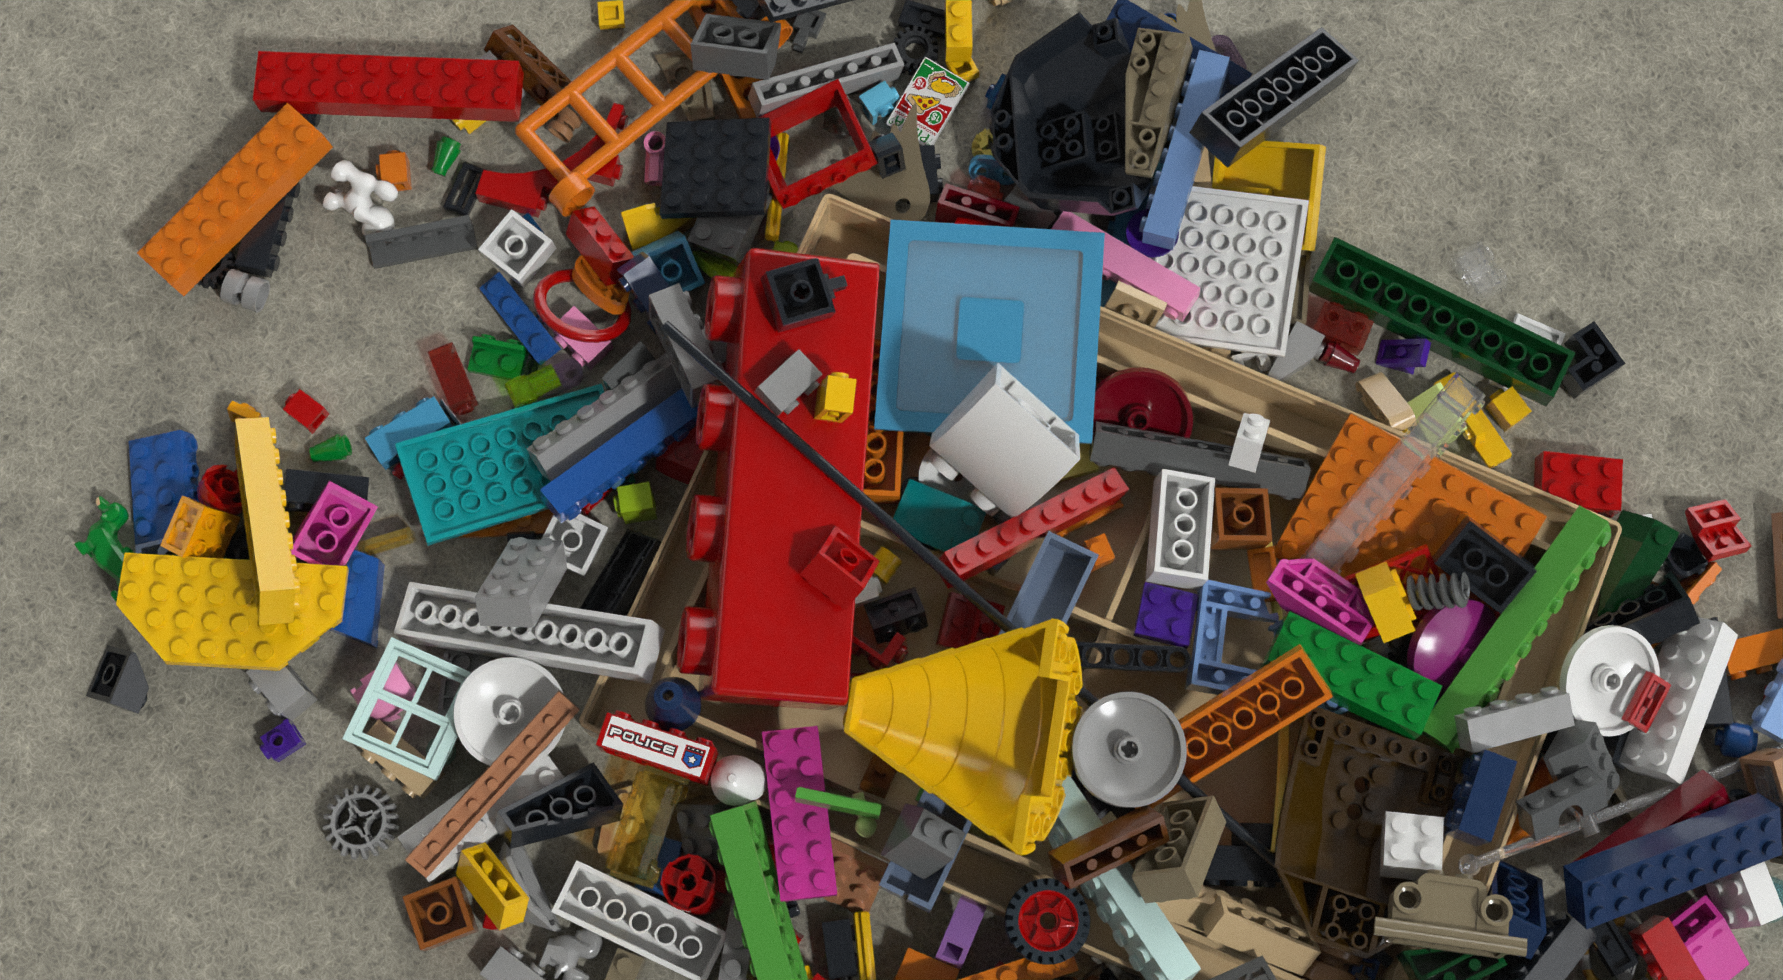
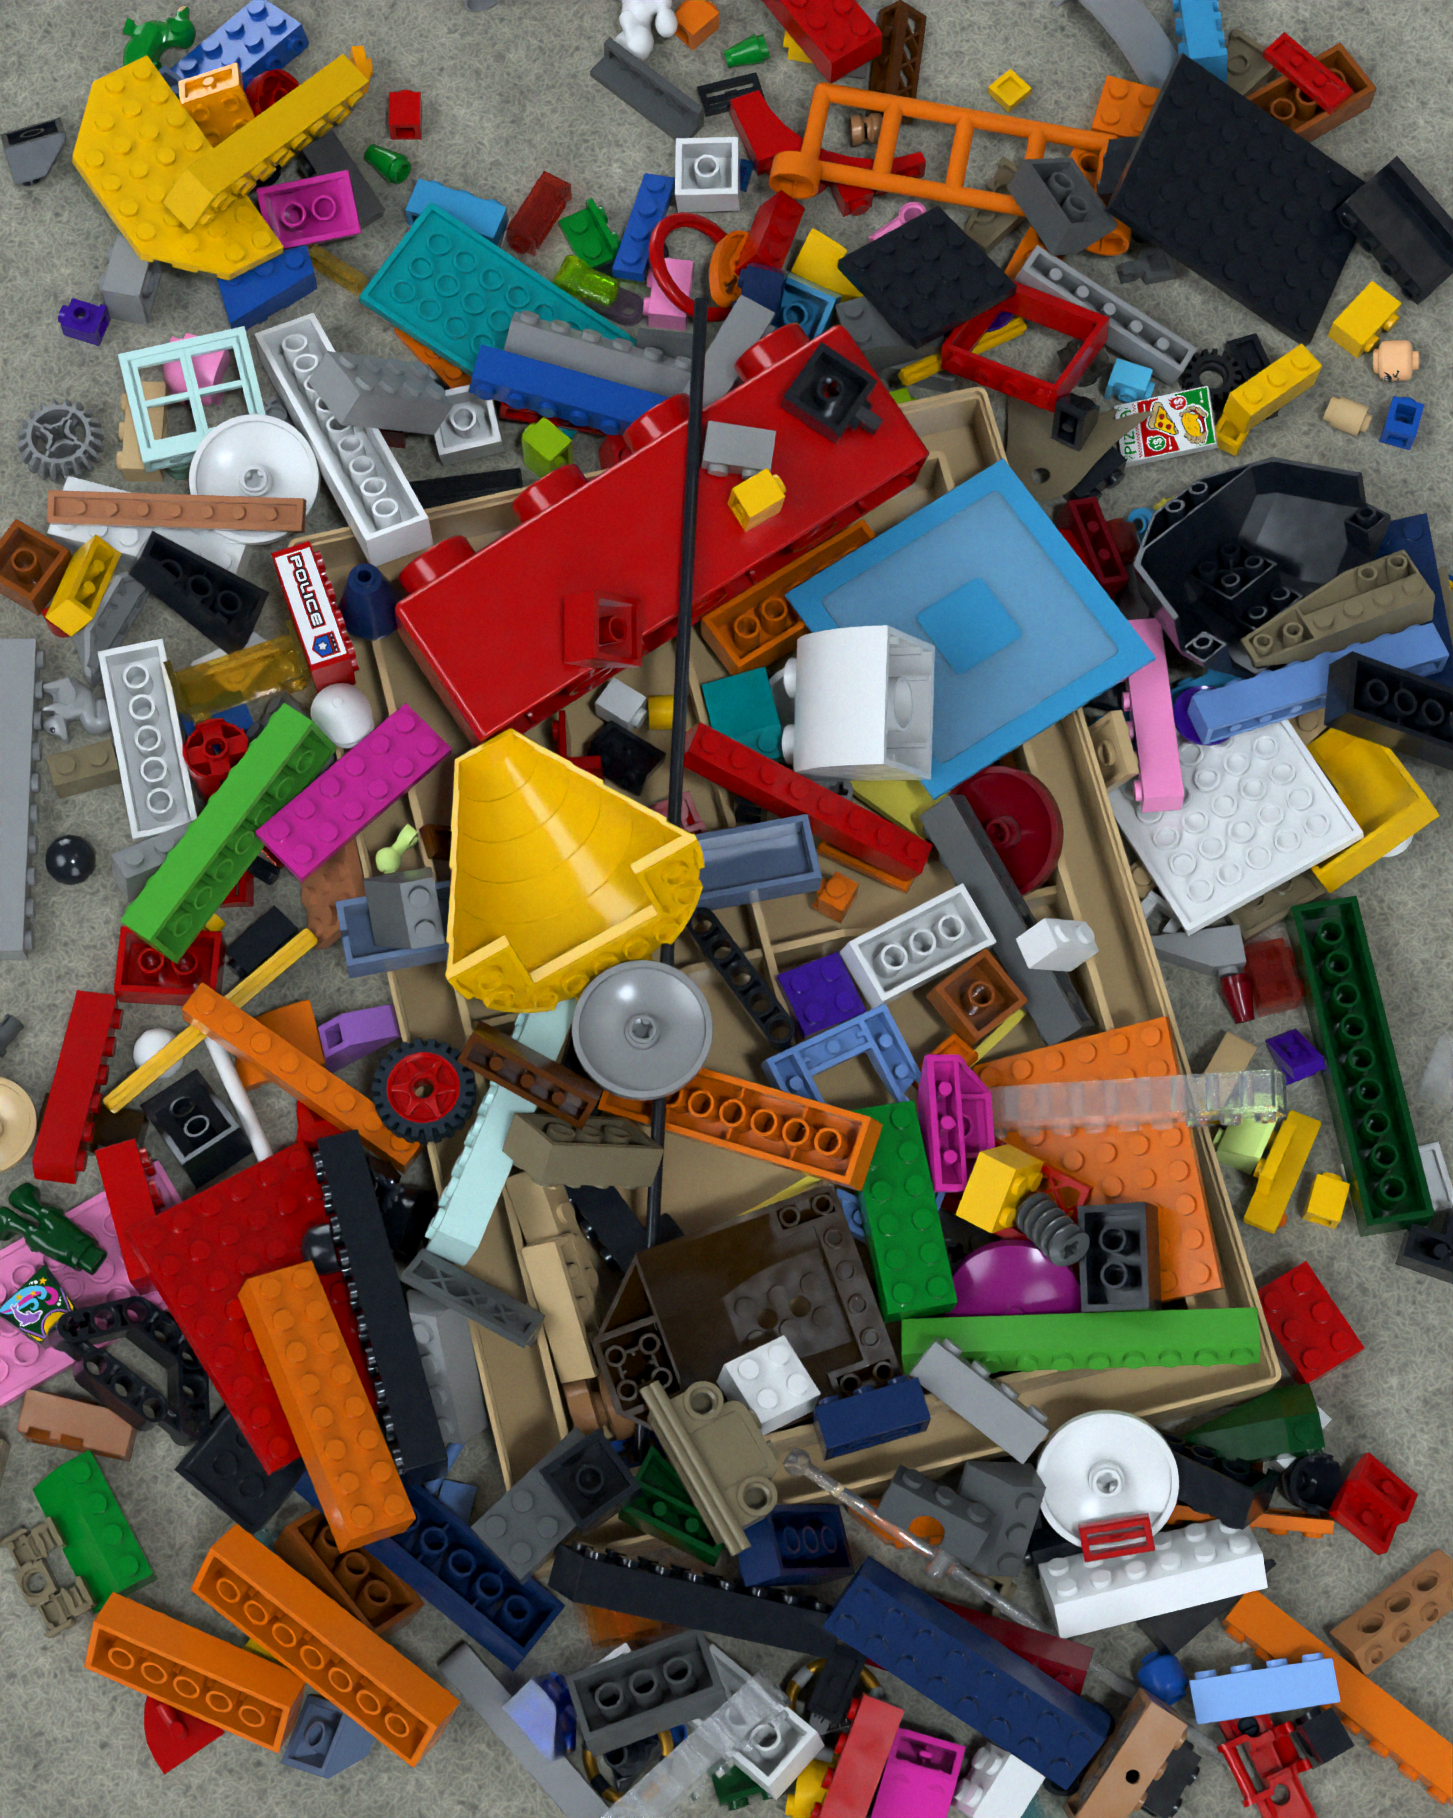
camera: 55 degrees right, 5 degrees down
(838, 803) = (386, 811): bright green tile -> none

